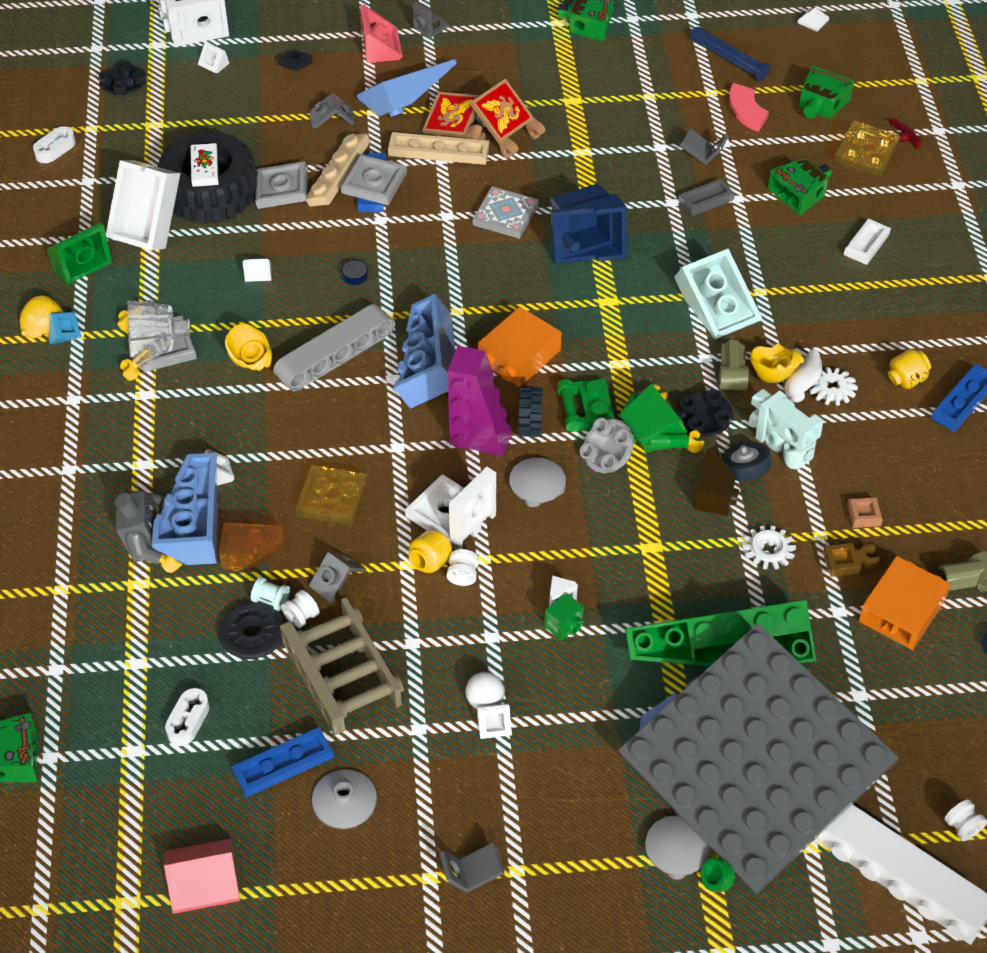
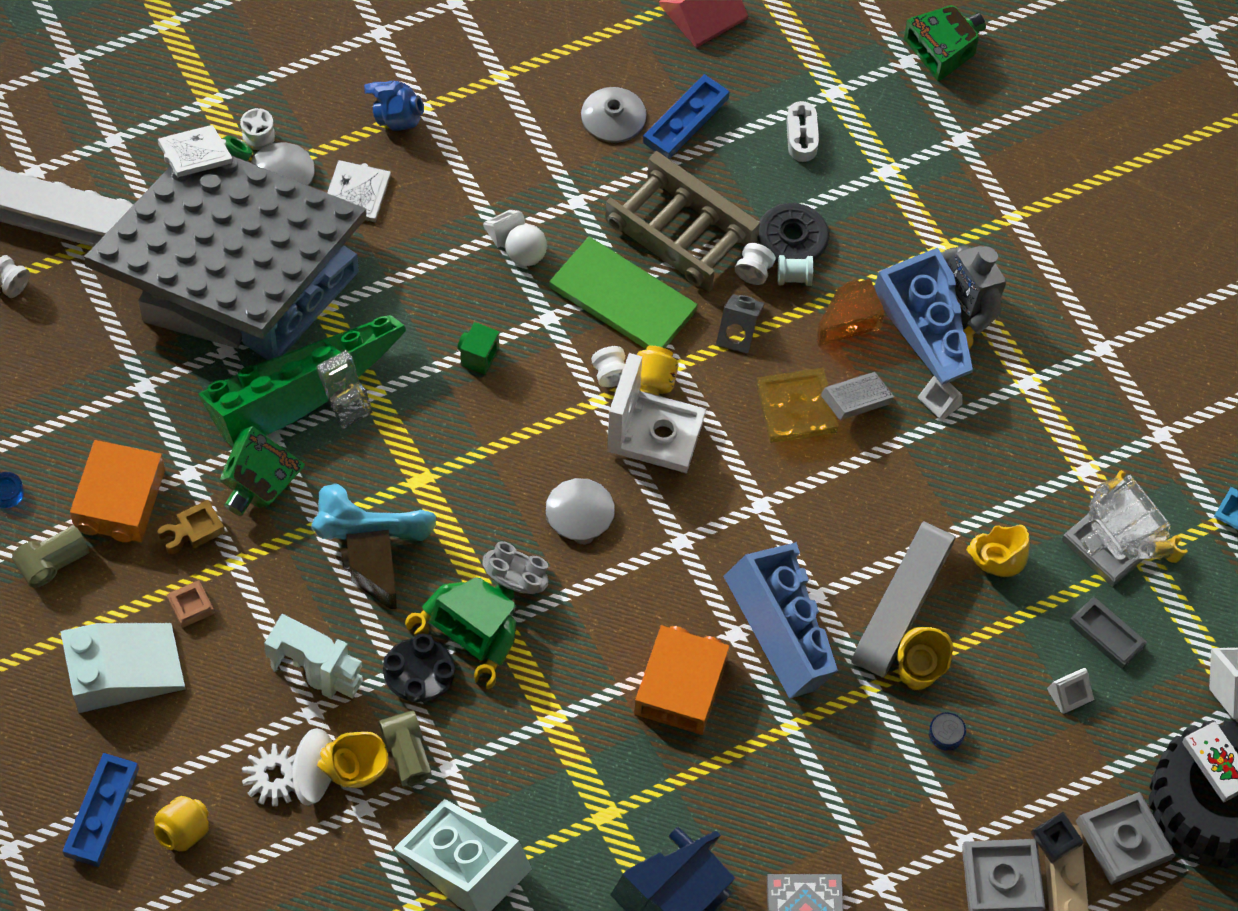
camera: 155 degrees right, 10 degrees up
(208, 293) = (1107, 632): none -> dark grey tile
(282, 481) = (857, 396): none -> light grey tile
(329, 177) = (1057, 837): none -> black tile
(340, 308) = (924, 656): none -> yellow hair
(422, 629) = (623, 295): none -> bright green tile
(473, 869) = (464, 84): dark grey bracket -> none
(474, 404) = (680, 524): magenta wedge -> none
(530, 411) = (623, 574): black wheel -> none
(548, 864) = (395, 104): none -> blue head
(560, 586) = (492, 372): white slope -> none
(594, 402) = (558, 641): green plate -> none
(613, 805) = (360, 186): none -> white piece
(688, 883) = (252, 122): none -> white wheel
(692, 607) = (344, 389): none -> clear slope
(724, 513) = (341, 517): none -> medium azure hair
(748, 460) = (346, 608): black wheel -> none
(761, 863) = (195, 151): none -> white piece
(771, 537) = (288, 508): white gear -> none
(784, 570) = (257, 471): none -> green torso
(931, 481) = (121, 663): none -> light aqua slope

